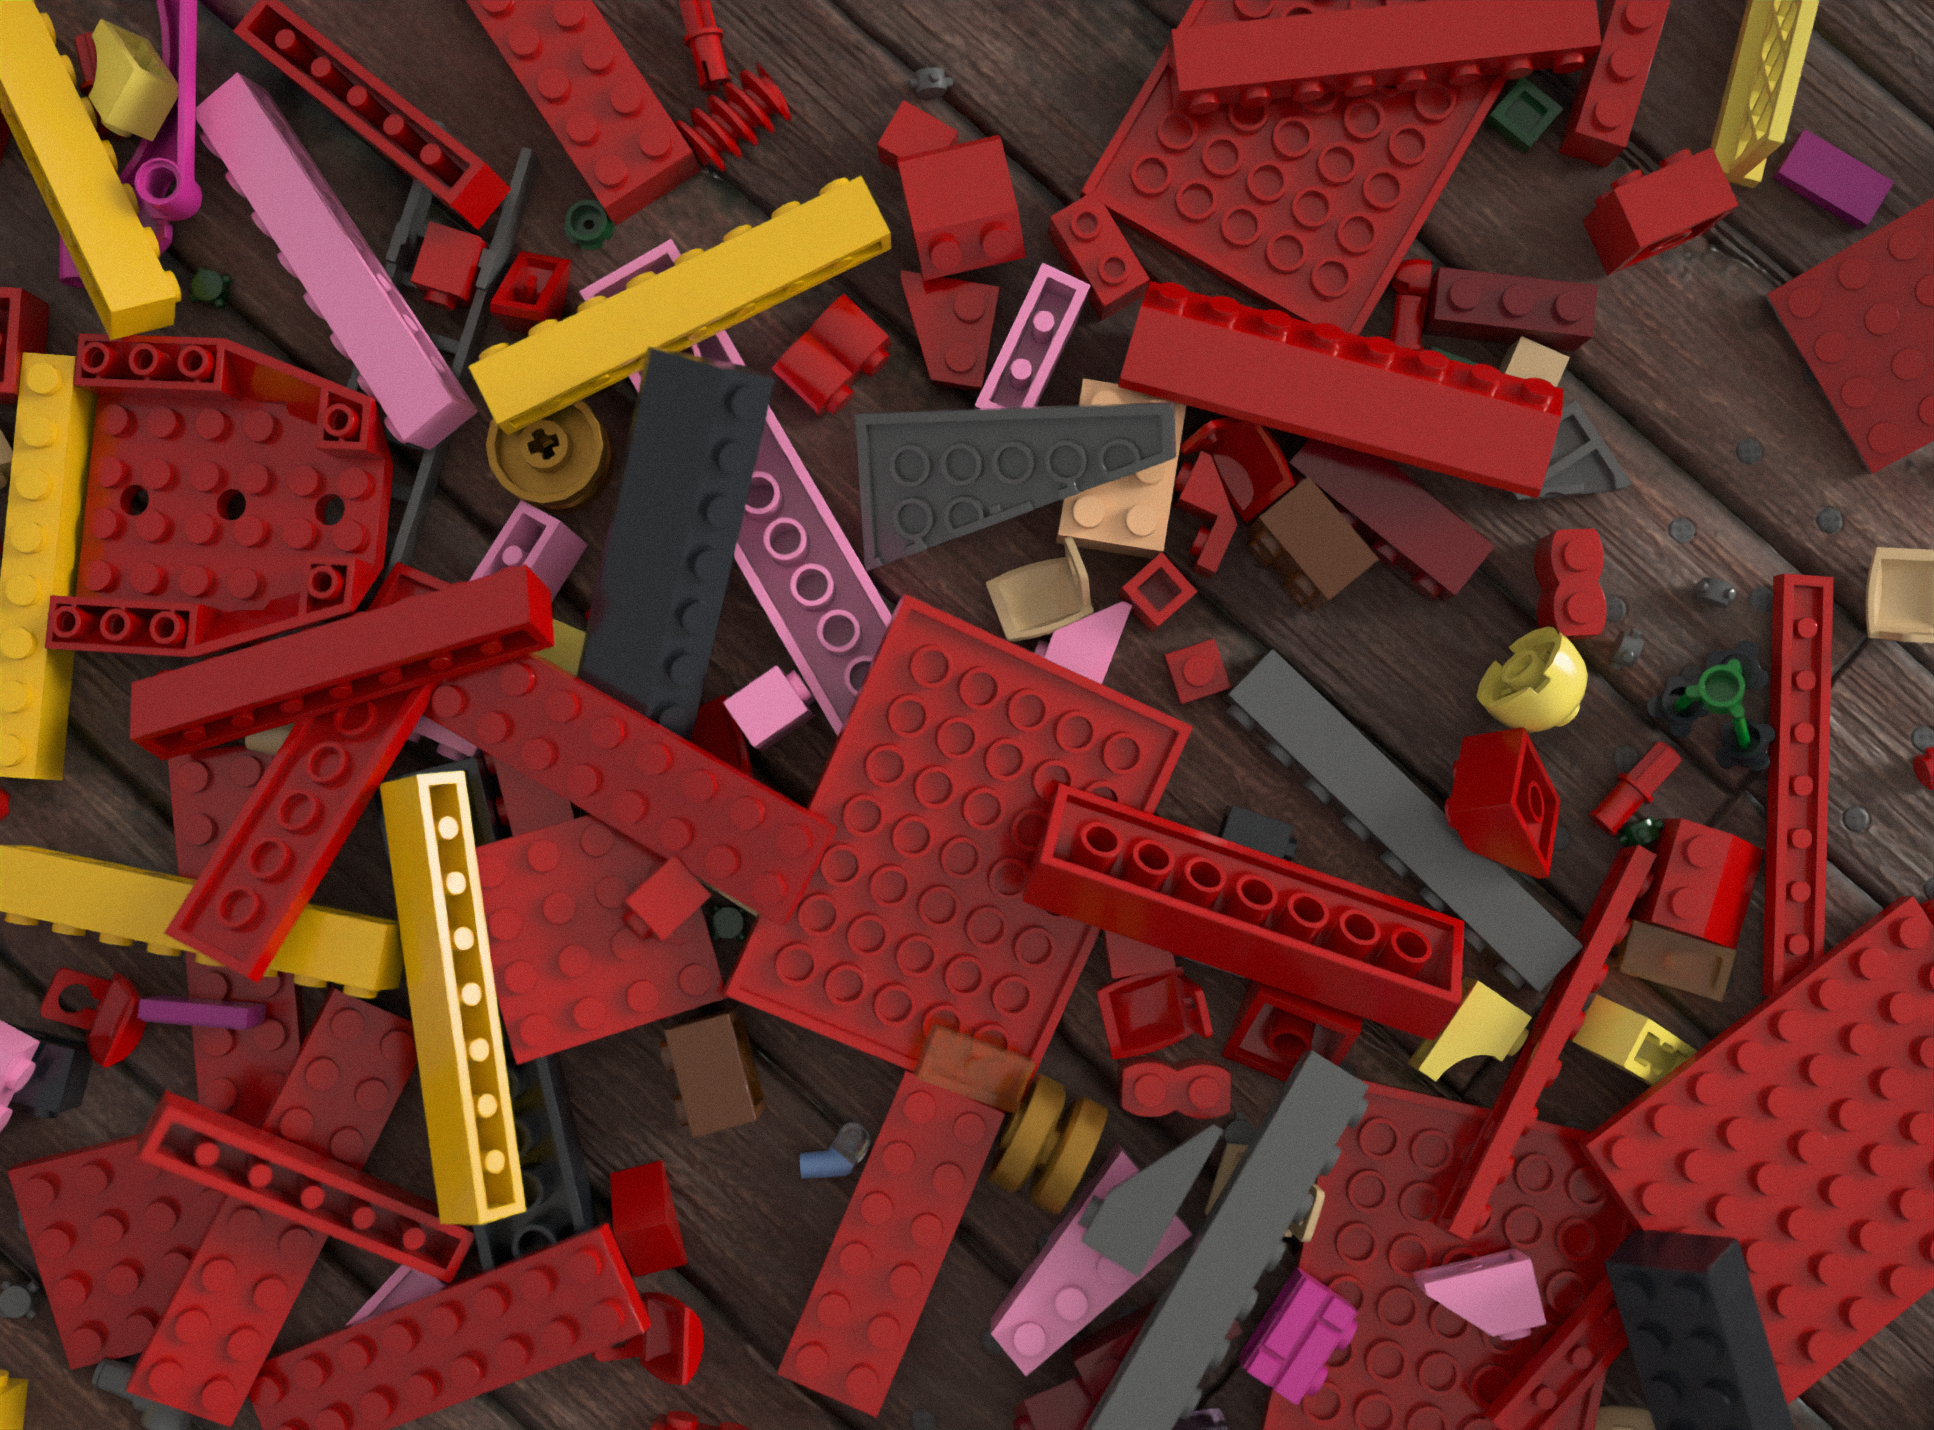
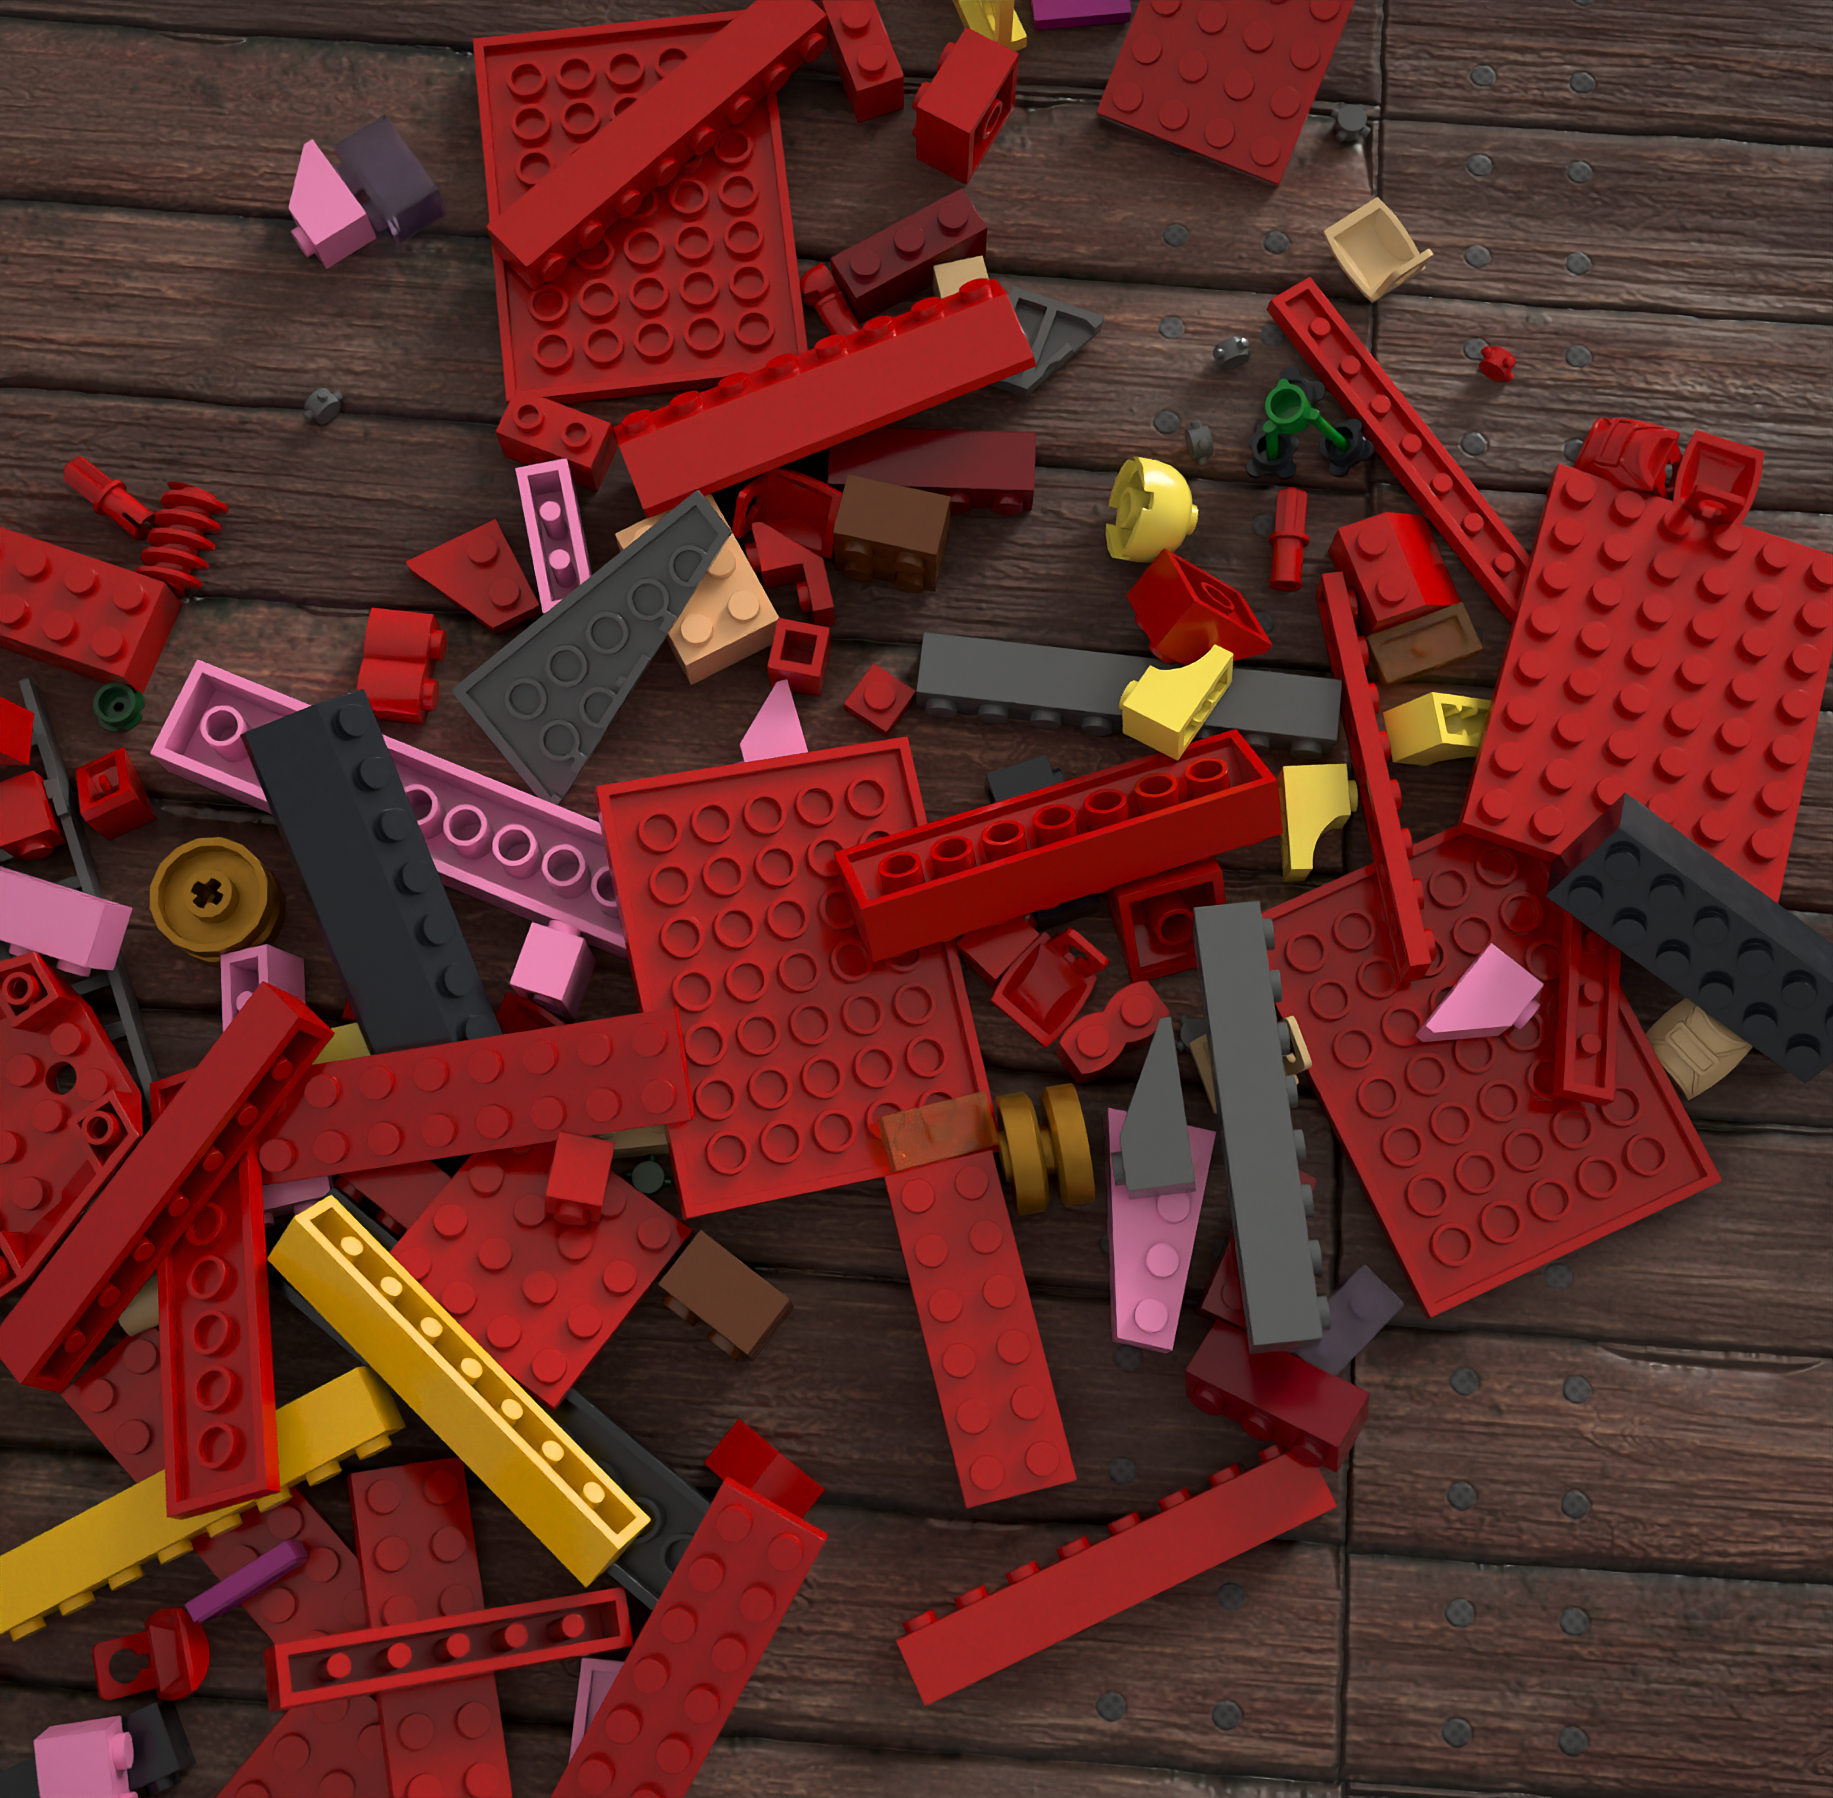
camera: 40 degrees left, 10 degrees down
(669, 1346) = (854, 1560): red piece -> none
(682, 304) = (250, 686): yellow brick -> none
(841, 1157) = (887, 1298): arm -> none
(912, 133) = (350, 457): red brick -> none
(961, 207) = (418, 475): red slope -> none
(1042, 595) = (712, 724): tan piece -> none
(1298, 1337) = (1364, 1148): dark pink brick -> none
(1424, 868) = (1174, 704): none -> light yellow arch
(1524, 114) = (810, 111): dark green plate -> none
(1568, 572) = (1109, 418): red brick -> none
(1641, 831) = (1321, 564): dark green piece -> none

